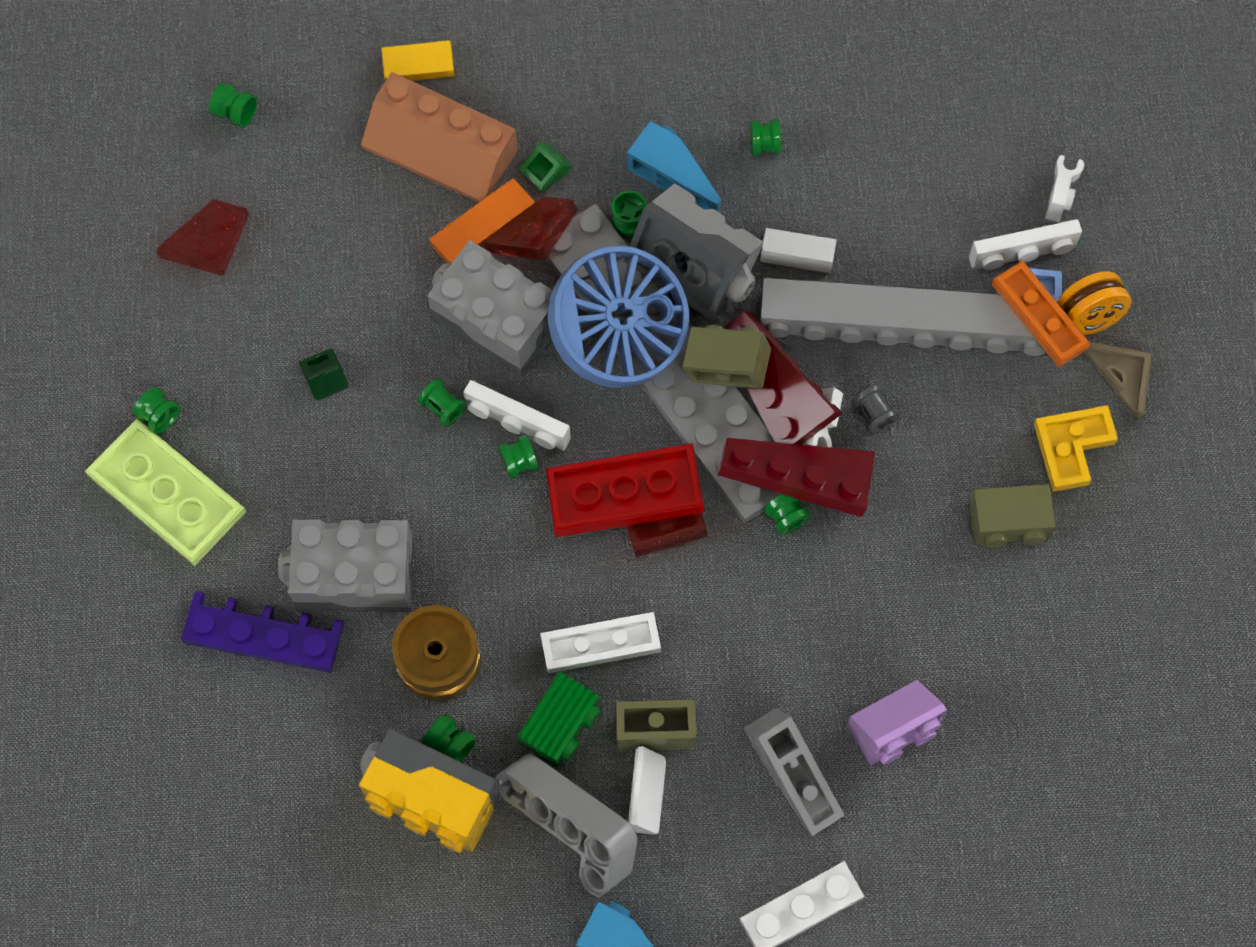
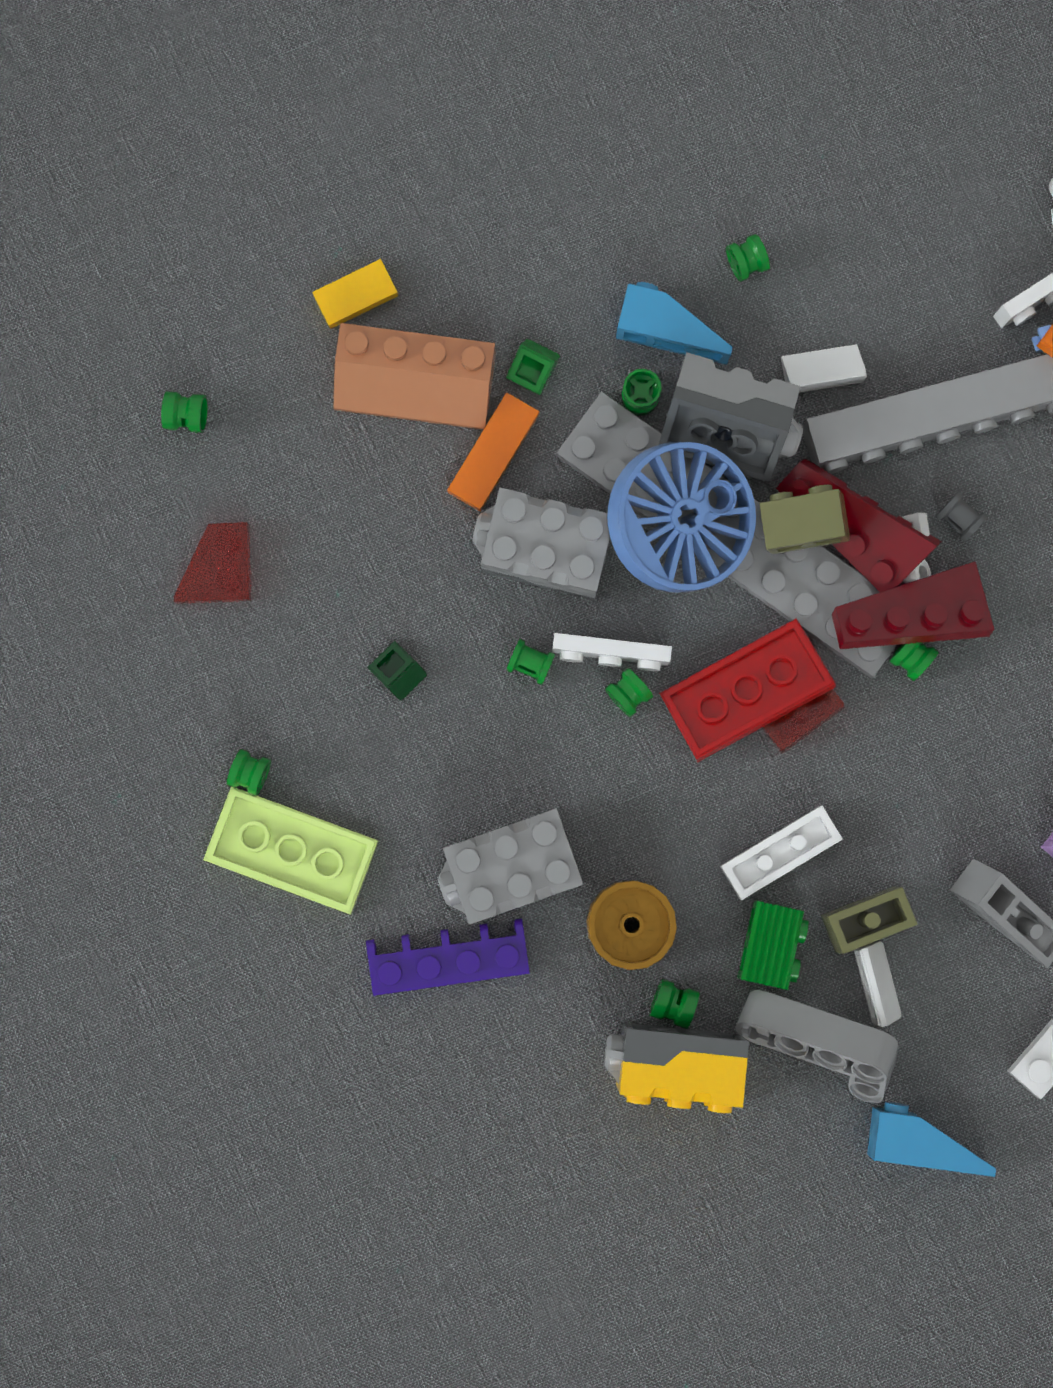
camera: 20 degrees left, 15 degrees up
(534, 230) = (551, 443): clear red wing -> none

